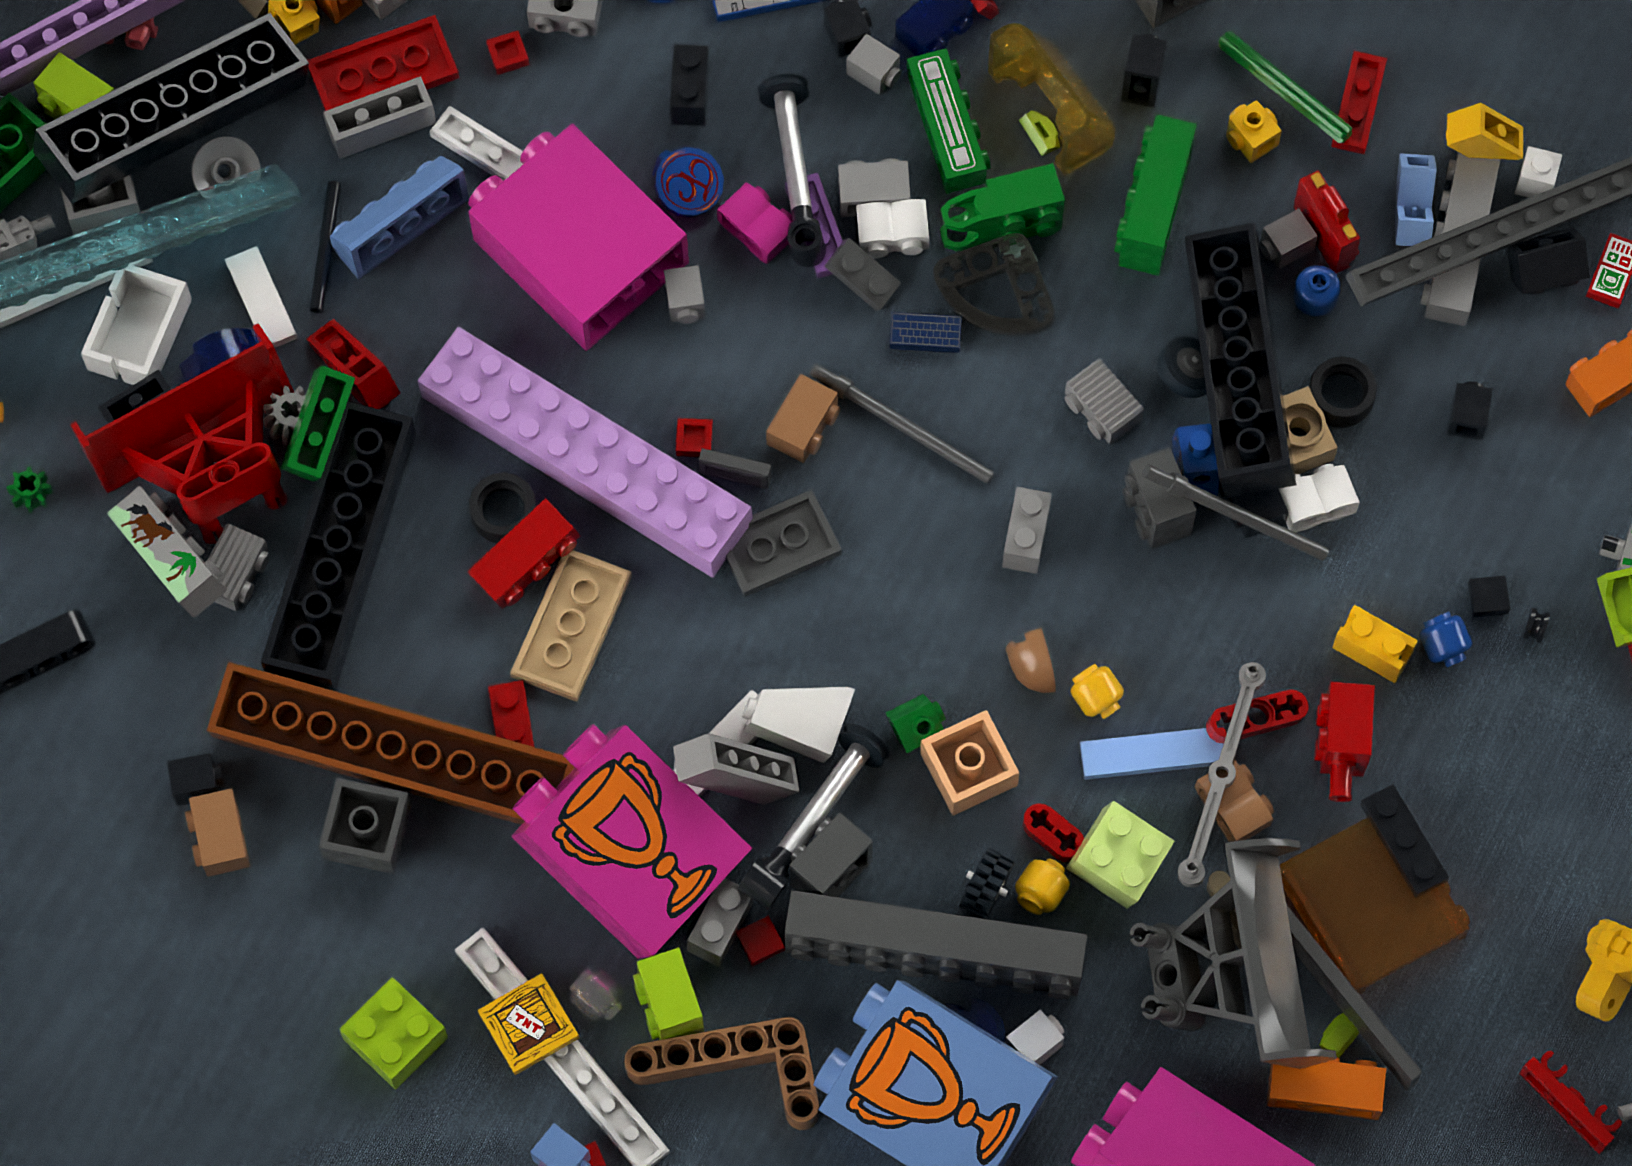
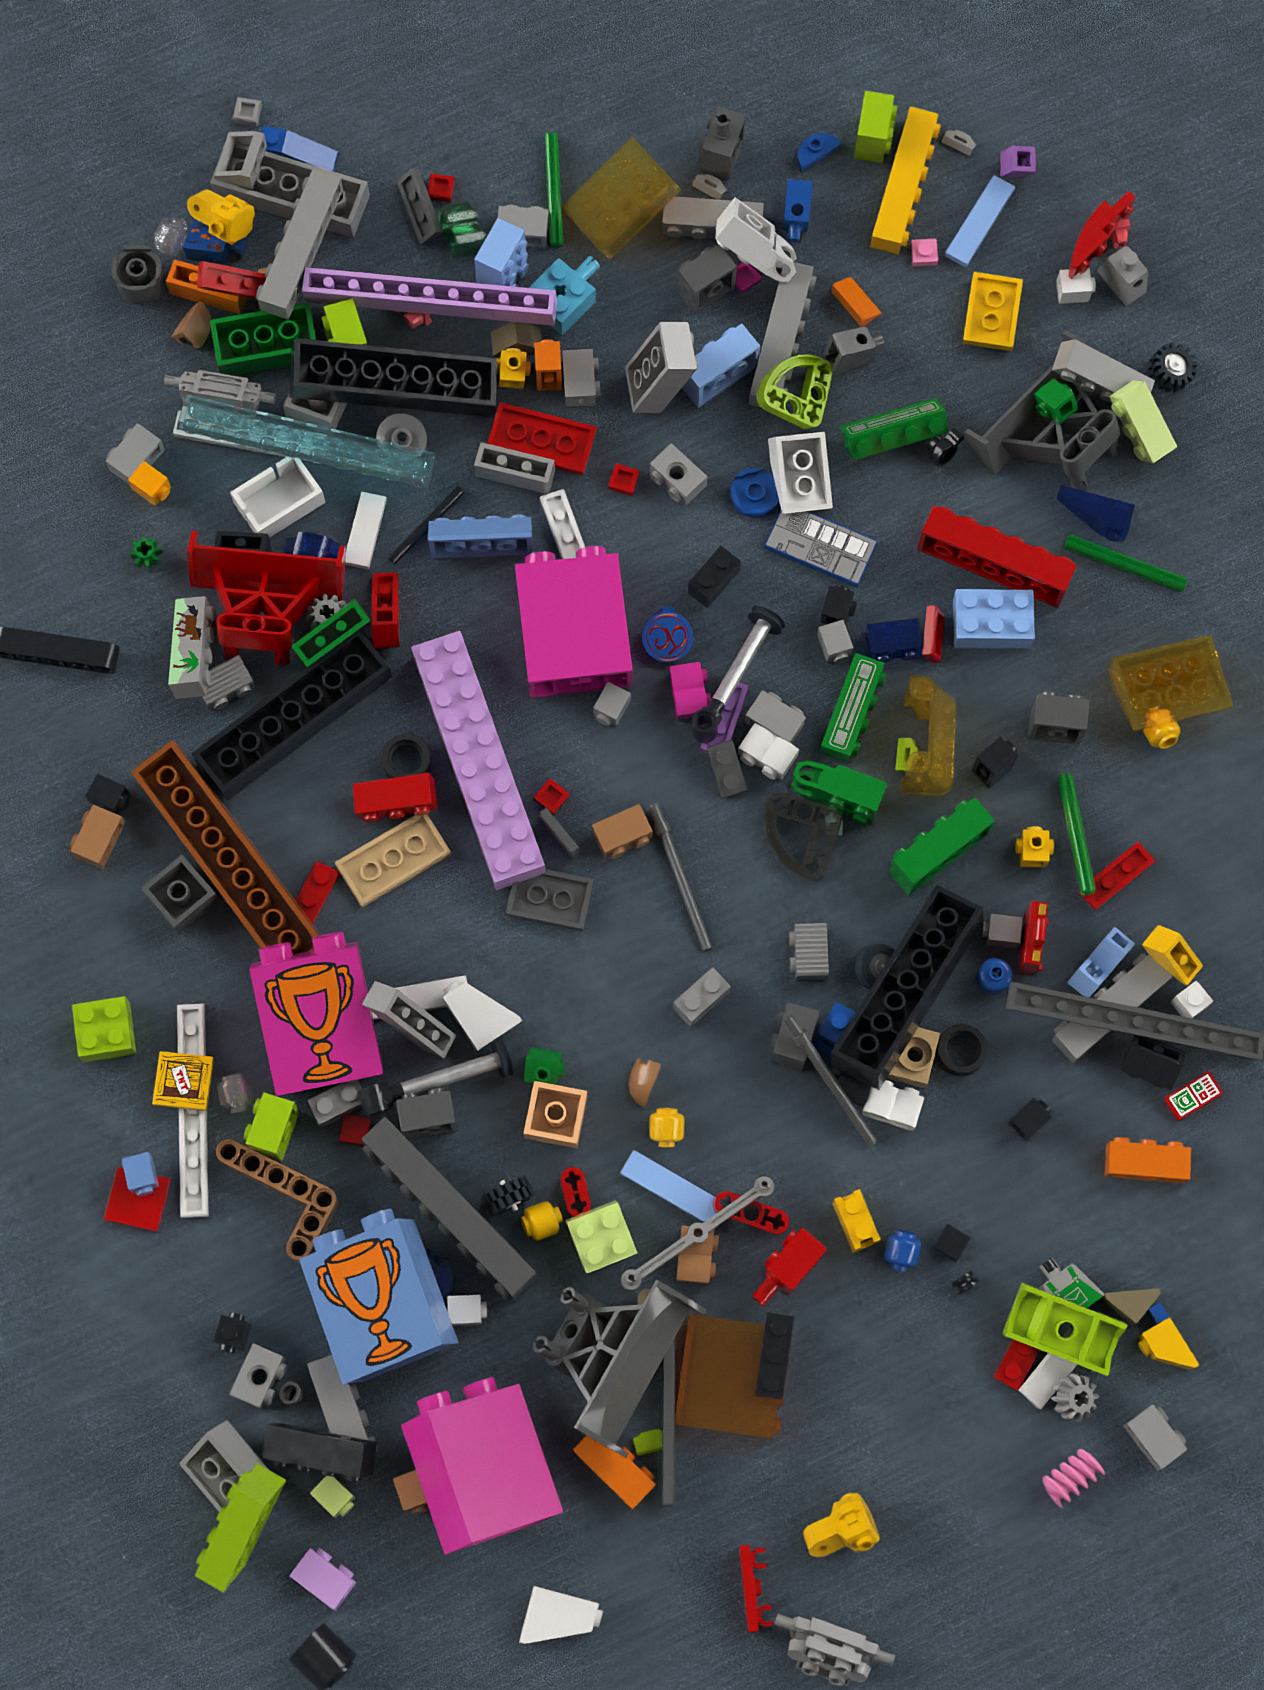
camera: 35 degrees right, 5 degrees up
(925, 332) = (738, 831): dark blue tile -> none

